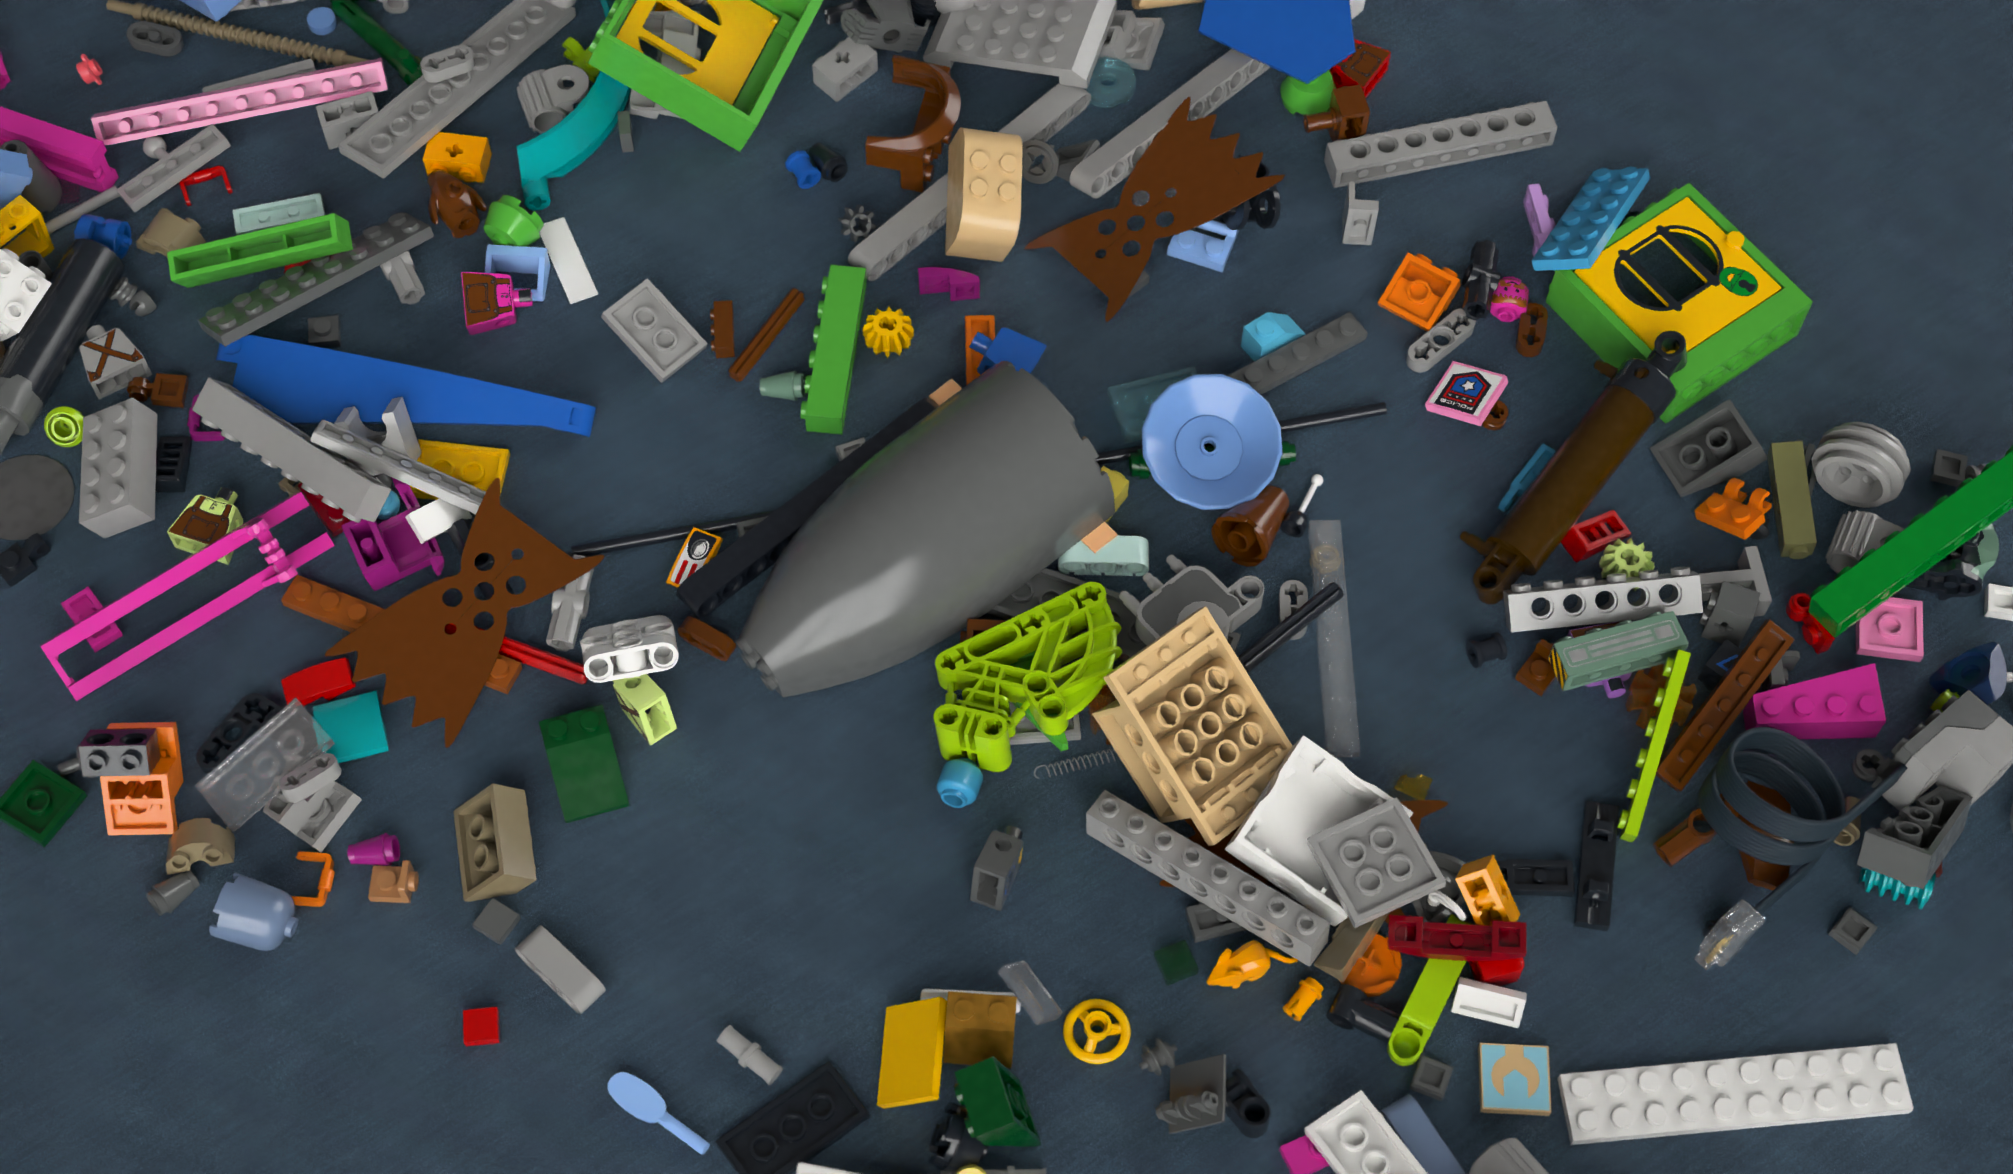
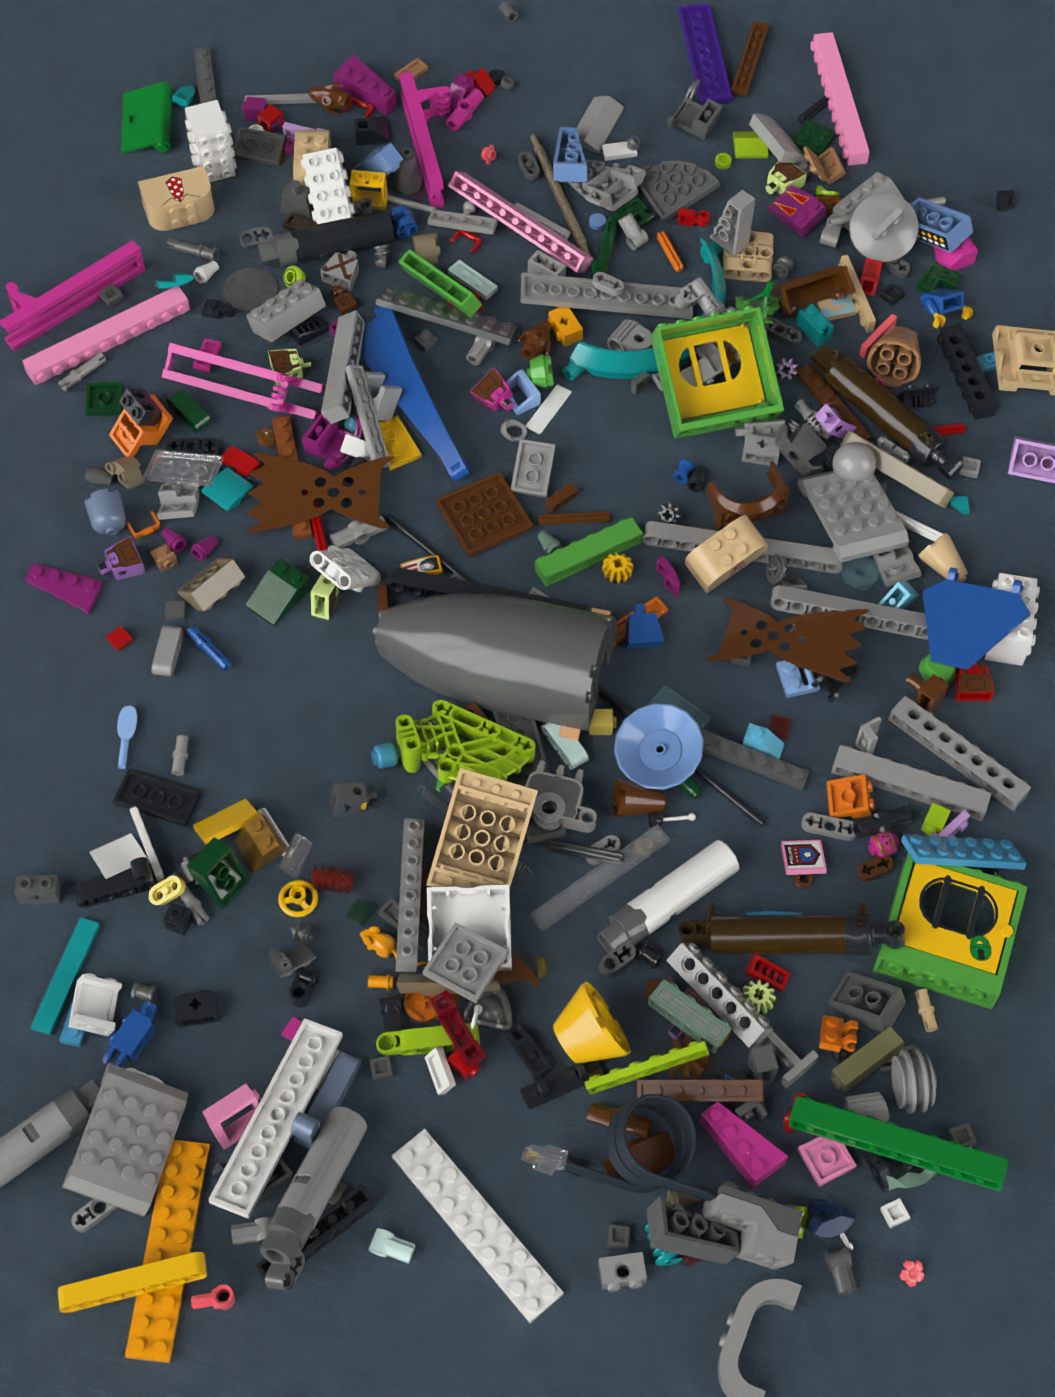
camera: 55 degrees right, 0 degrees up
(167, 700) = (188, 410): none -> dark green beam
(305, 625) = (265, 437): none -> clear orange plant
(310, 777) = (186, 488): light grey beam -> none
(337, 1043) = (73, 588): none -> magenta wing
(352, 941) = (122, 560): none -> torso
(425, 819) = (203, 548): none -> magenta cone
(557, 328) = (508, 424): none -> light grey piece
(600, 910) = (203, 642): none -> blue pin
(672, 434) = (484, 514): none -> reddish brown plate
(817, 43) = (761, 428): none -> light grey hinge
(1103, 965) = (332, 879): none -> clear red piece
(1180, 63) = (900, 596): none -> medium azure slope
(1258, 303) = (779, 726): none -> clear red tile
(1429, 588) = (663, 901): none -> white piece
(1443, 217) = (912, 782): none -> light grey brick
(1486, 892) = (496, 1032): light orange brick -> none
(1514, 225) = (935, 819): none -> lime brick
(1514, 1079) = (407, 1108): tile -> none
(1561, 776) = (588, 1028): none -> yellow cone
(1760, 399) = (926, 1010): none -> tan pin
(1896, 967) = (631, 1262): none -> light grey brick

